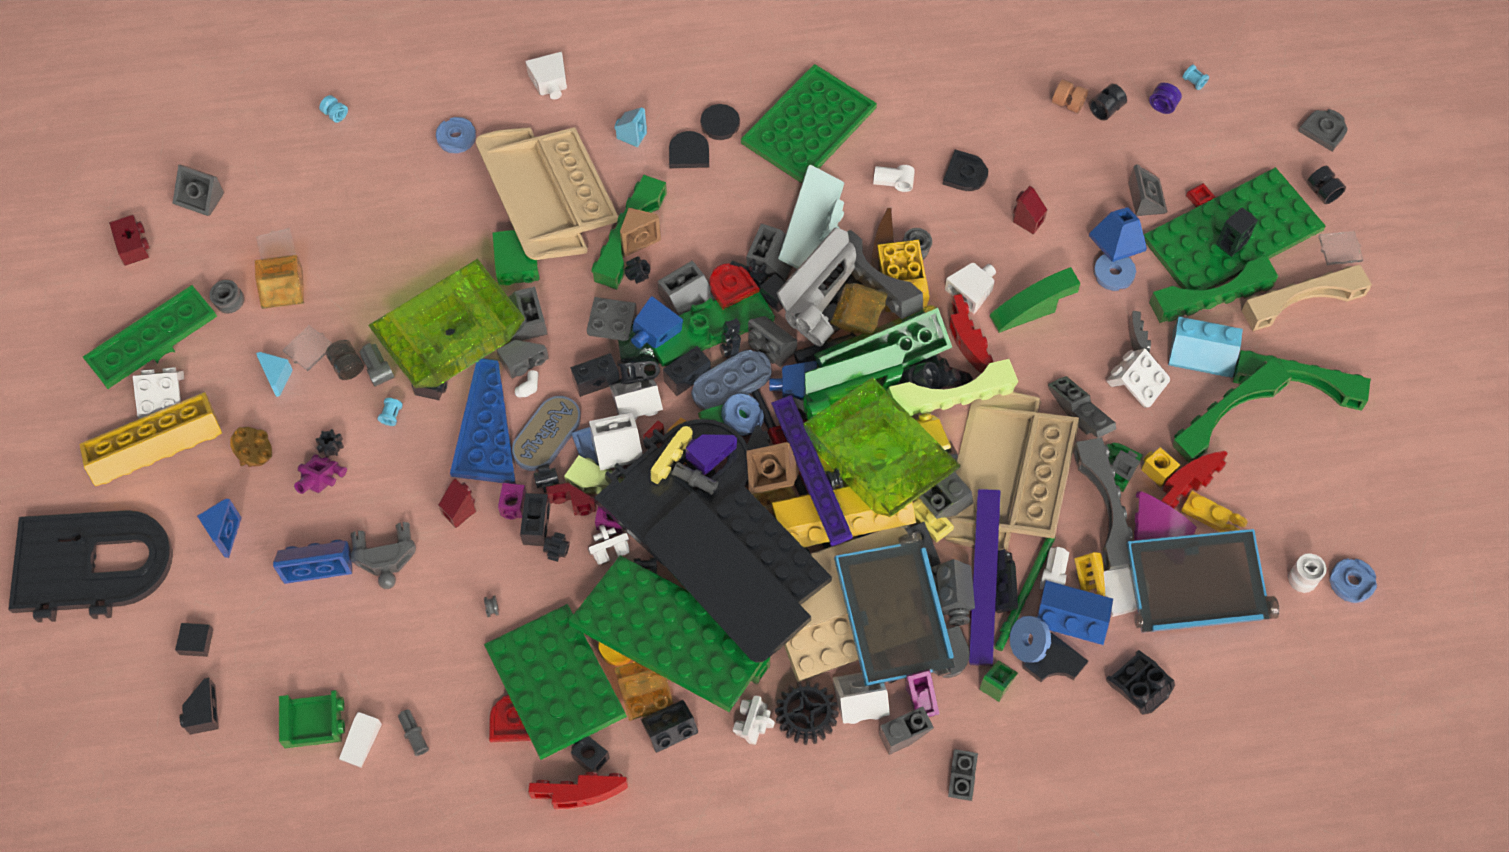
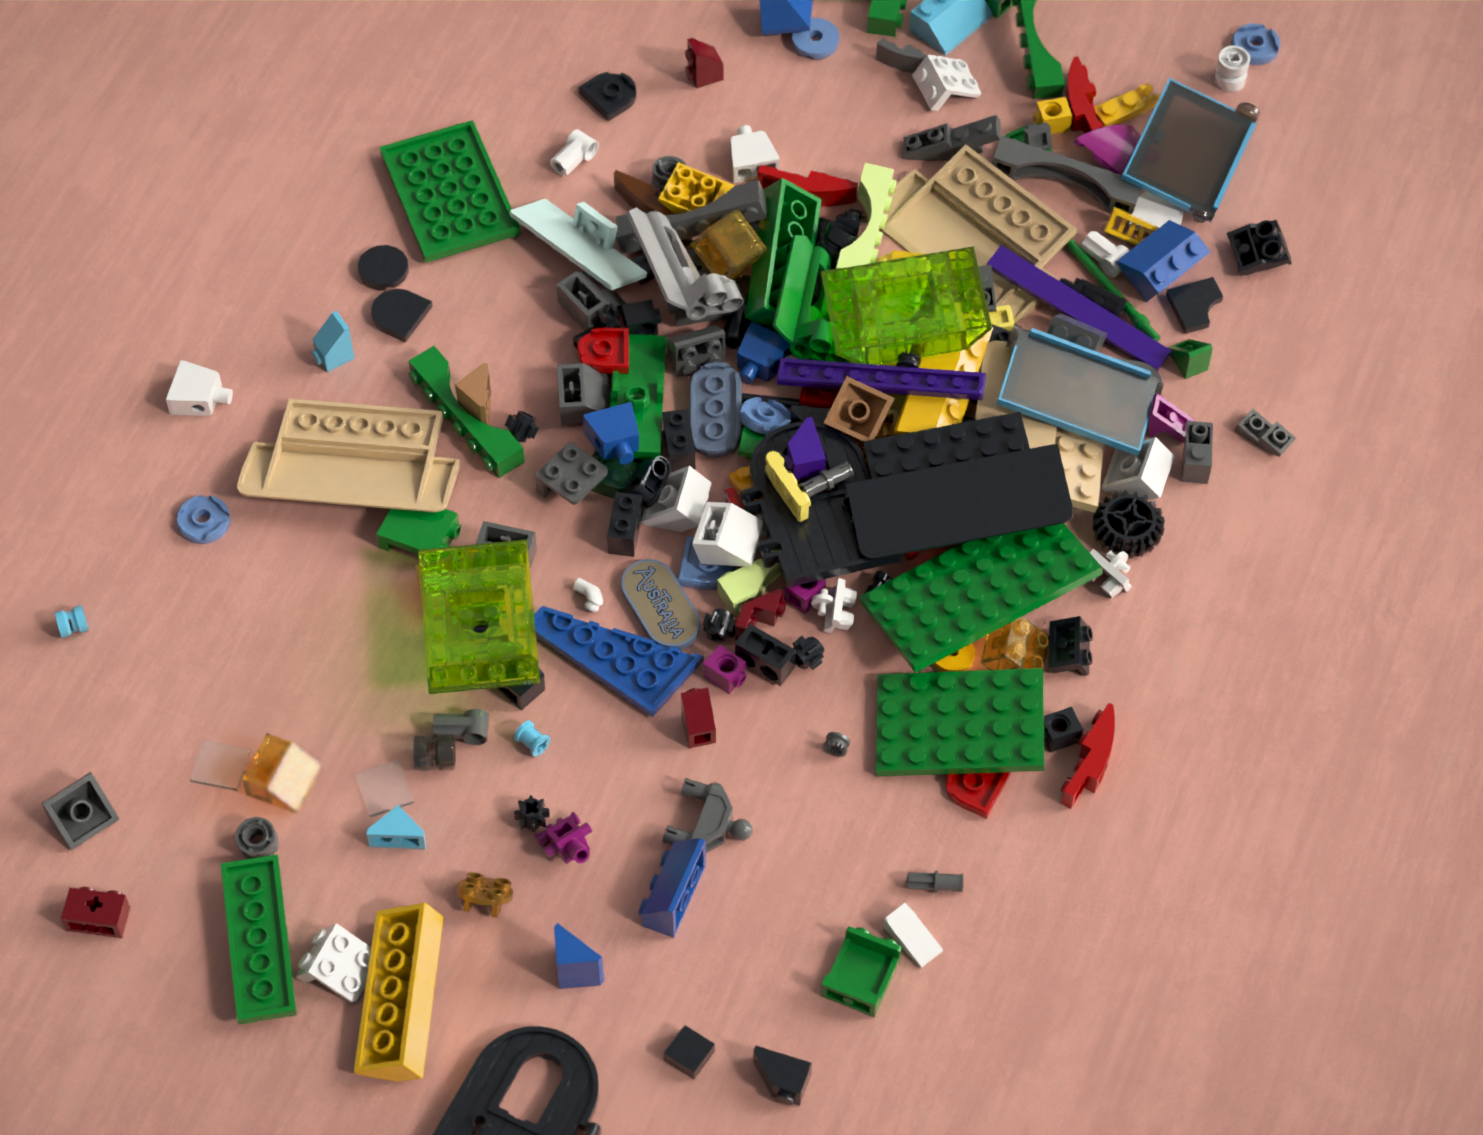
camera: 60 degrees left, 5 degrees down
(521, 356) = (550, 583): dark grey slope -> none
(730, 339) = (676, 379): black hinge -> none
(959, 617) = (1107, 349): dark grey bush -> none
(1019, 639) = (1169, 289): medium blue tile -> none
(1035, 300) = (810, 111): green slope -> none

